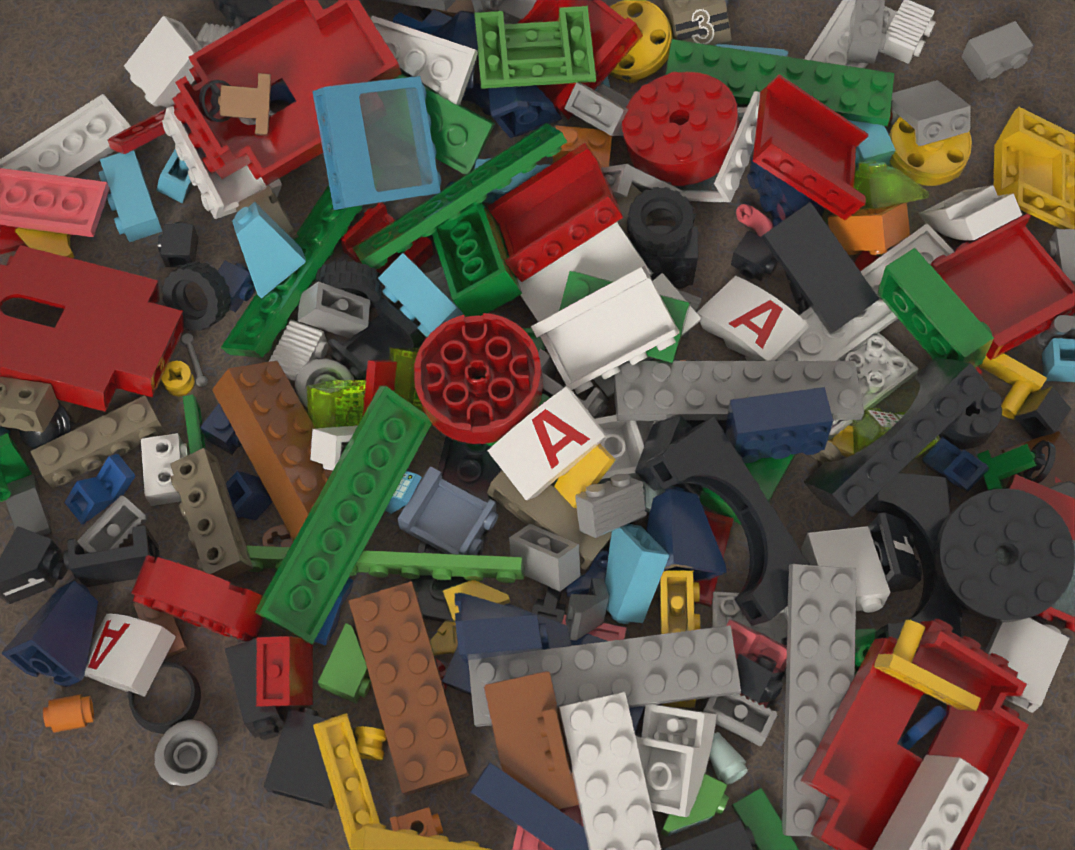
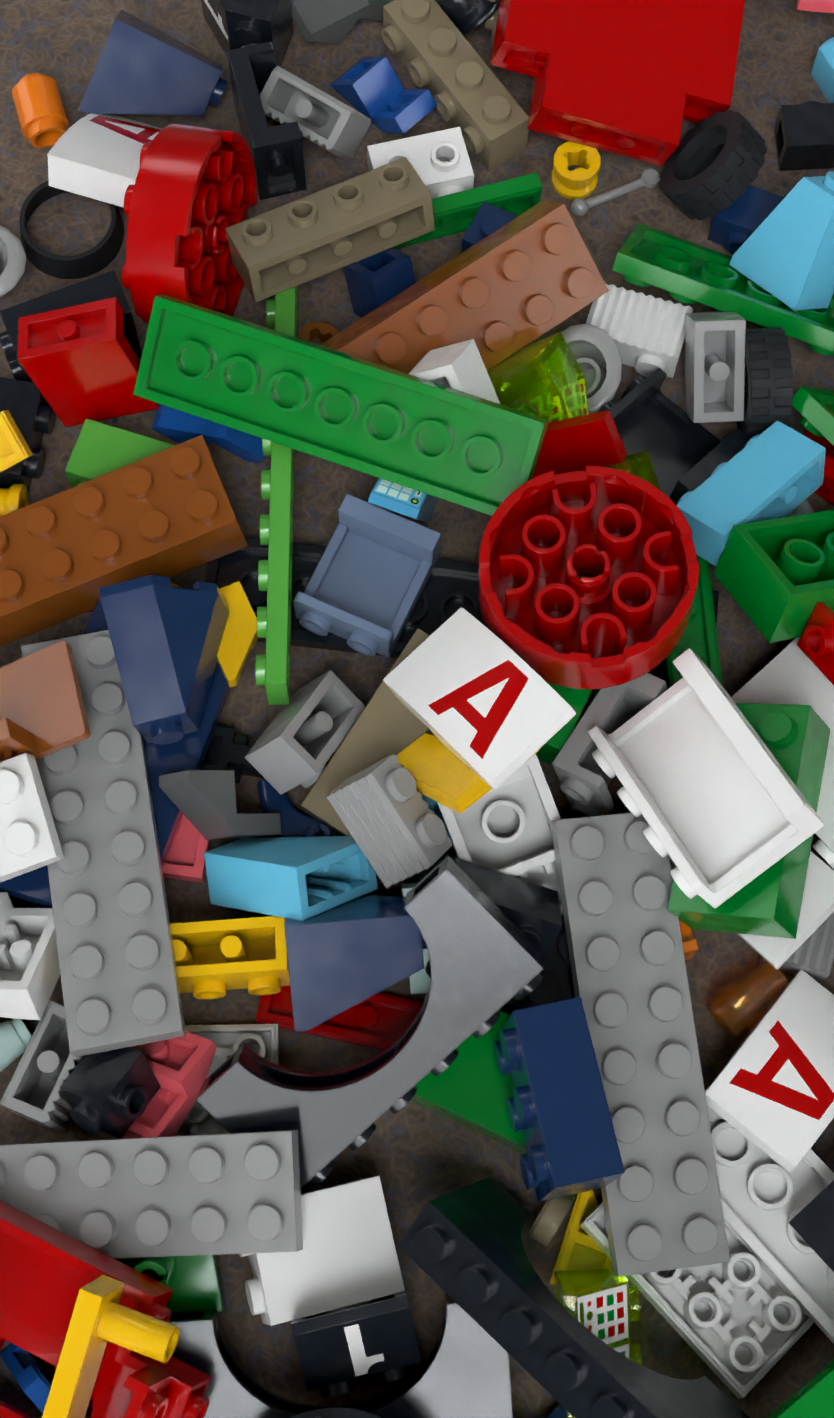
camera: 85 degrees right, 5 degrees up
(710, 343) = (745, 1000): none -> clear orange cone

